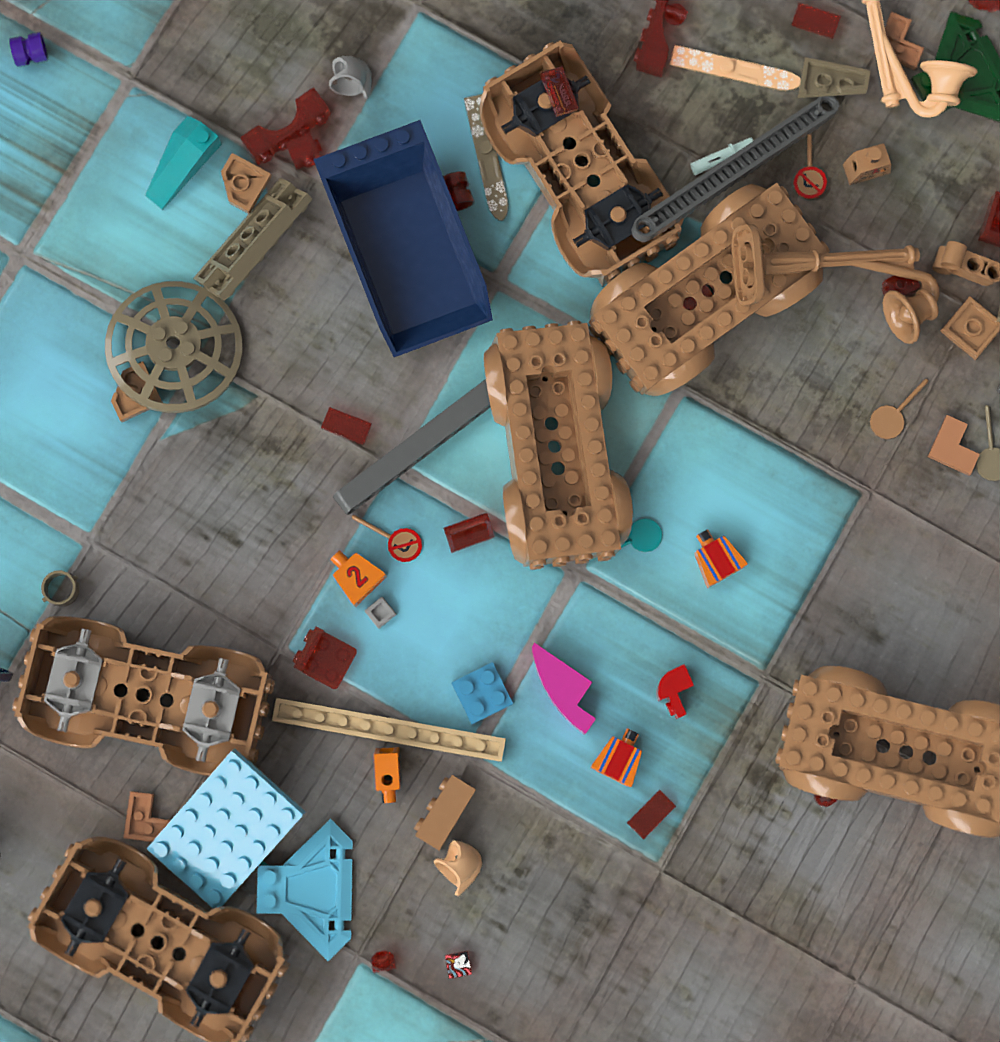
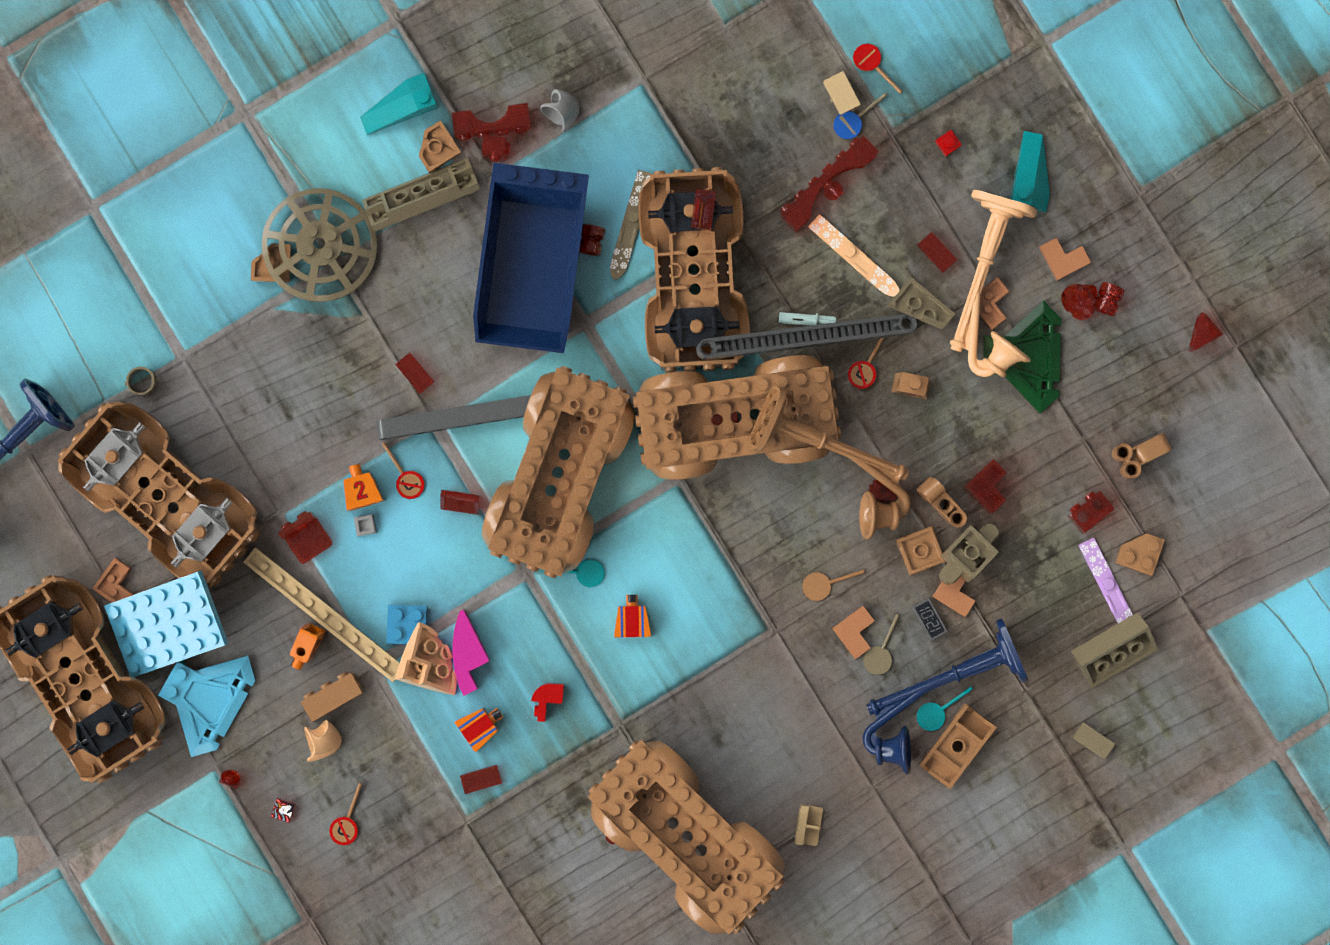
camera: 30 degrees right, 5 degrees up
(526, 720) = (427, 662): none -> light nougat brick
(534, 949) = (344, 829): none -> piece

